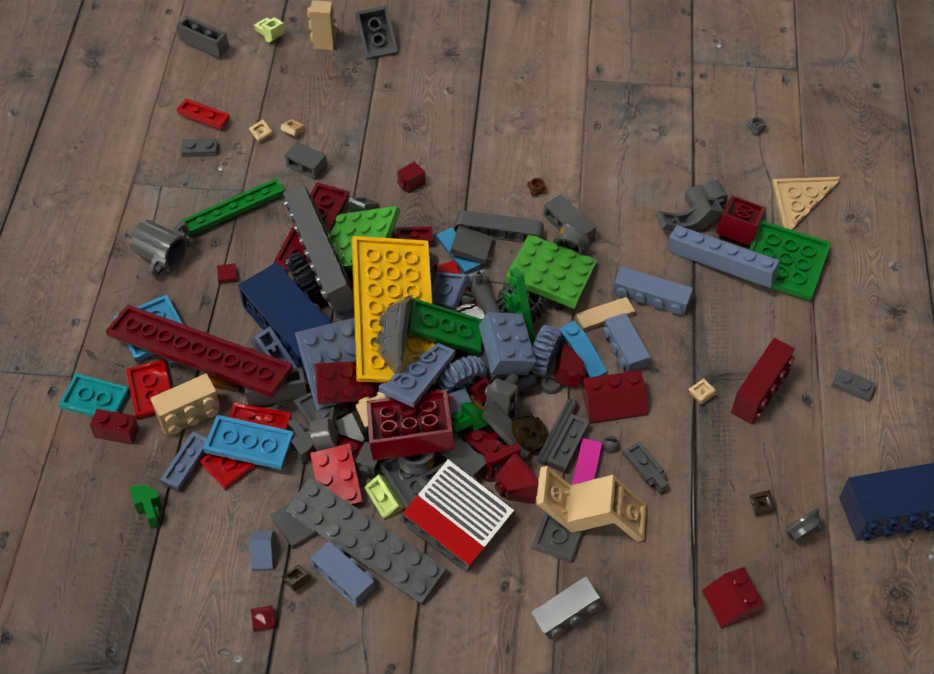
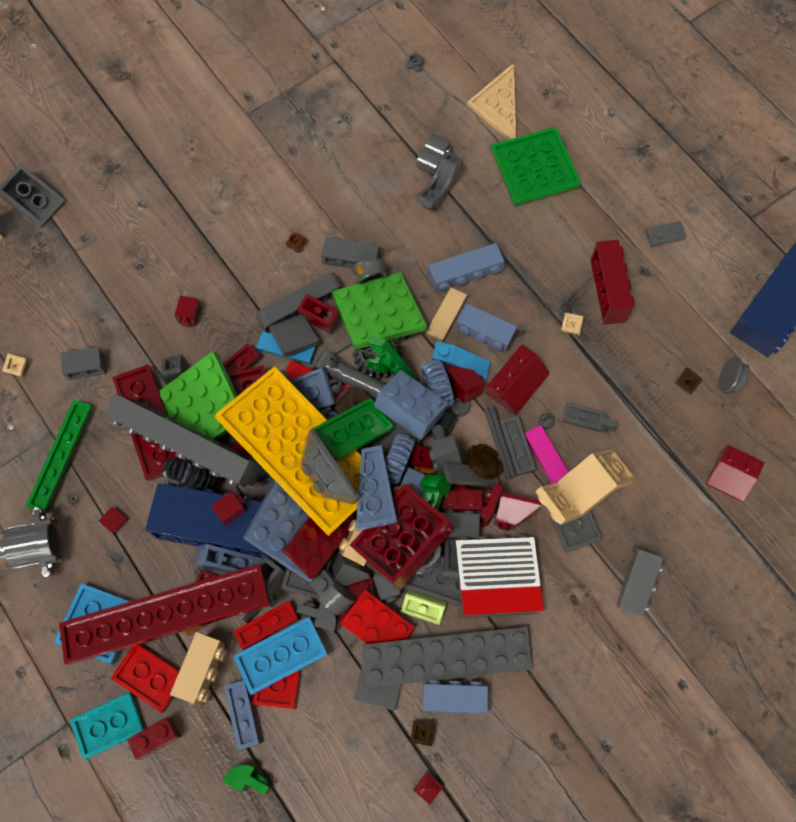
camera: 40 degrees left, 15 degrees up
(261, 550) = (373, 732): sand blue slope -> none
(293, 127) = (40, 340): tan tile -> none
(305, 310) = (229, 508): none -> dark red brick
(503, 242) = (319, 313): none -> dark red slope
(724, 256) = (495, 197): sand blue brick -> none
(740, 220) = (479, 155): dark red slope -> none

